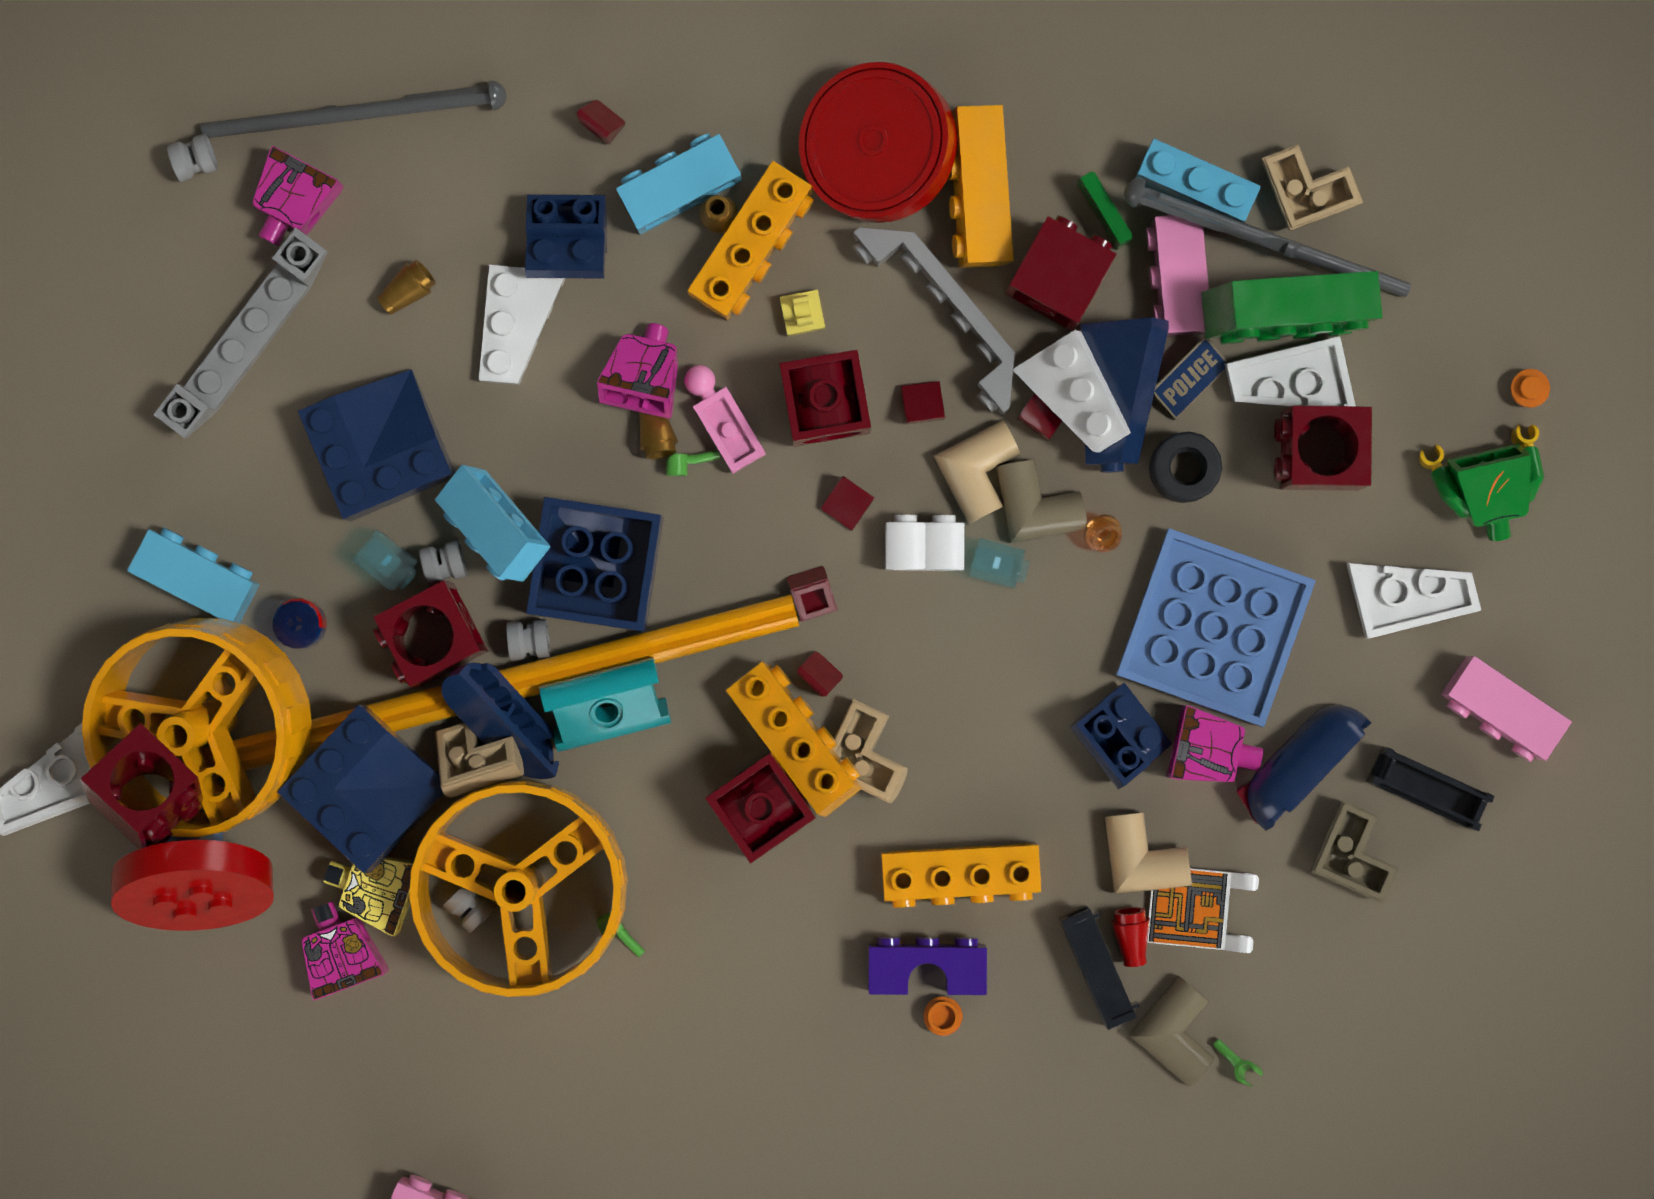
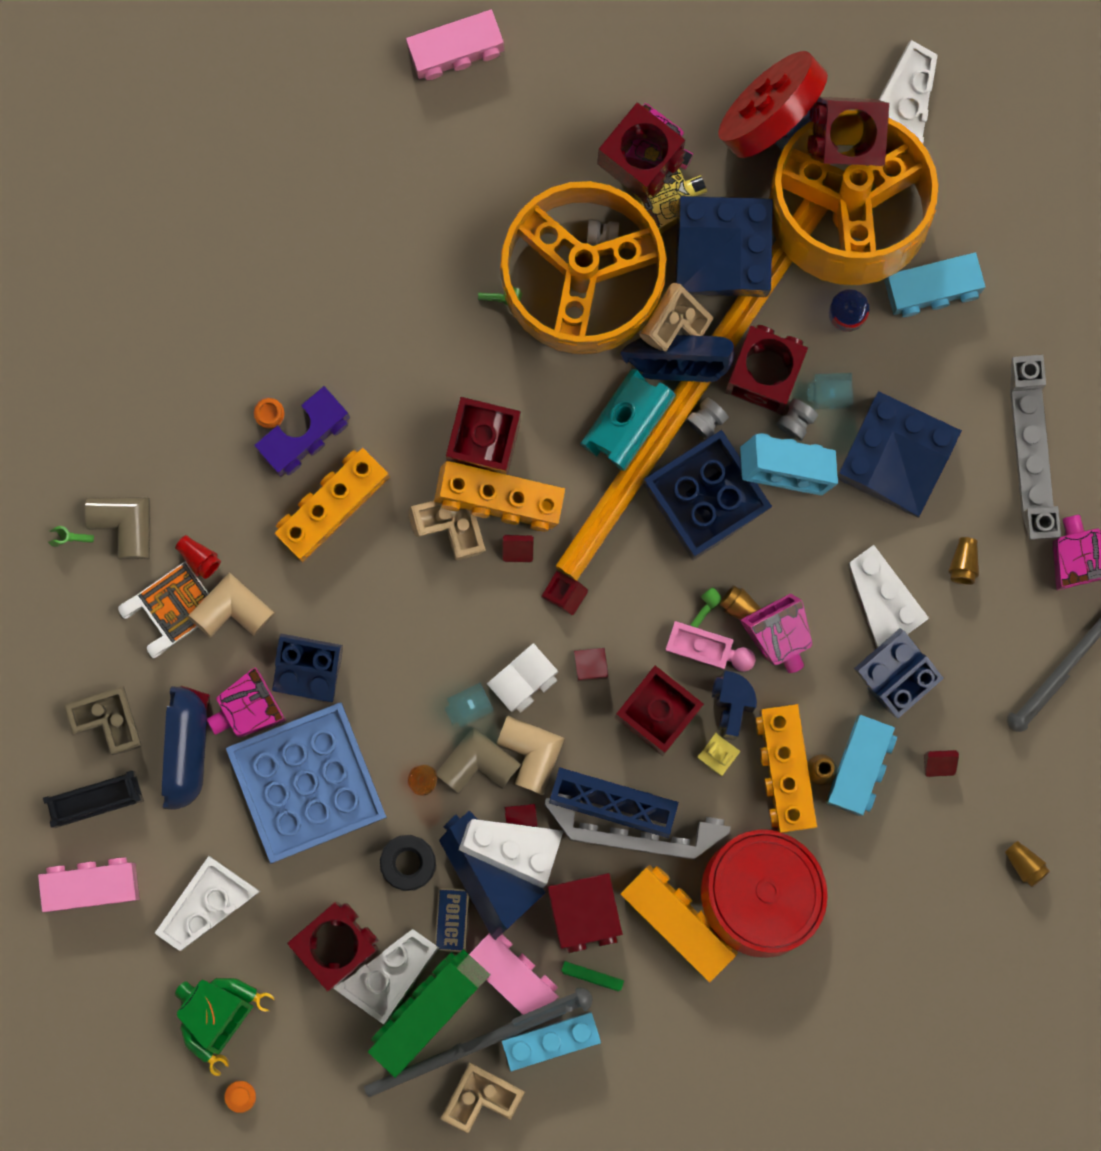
camera: 135 degrees right, 5 degrees down
(337, 977) = (637, 125): none -> dark red brick
(739, 346) = (738, 696): none -> dark blue brick
(923, 402) = (599, 763): dark red slope -> none
(937, 356) = (614, 798): none -> dark blue fence
(1098, 967) = (201, 519): black container -> none

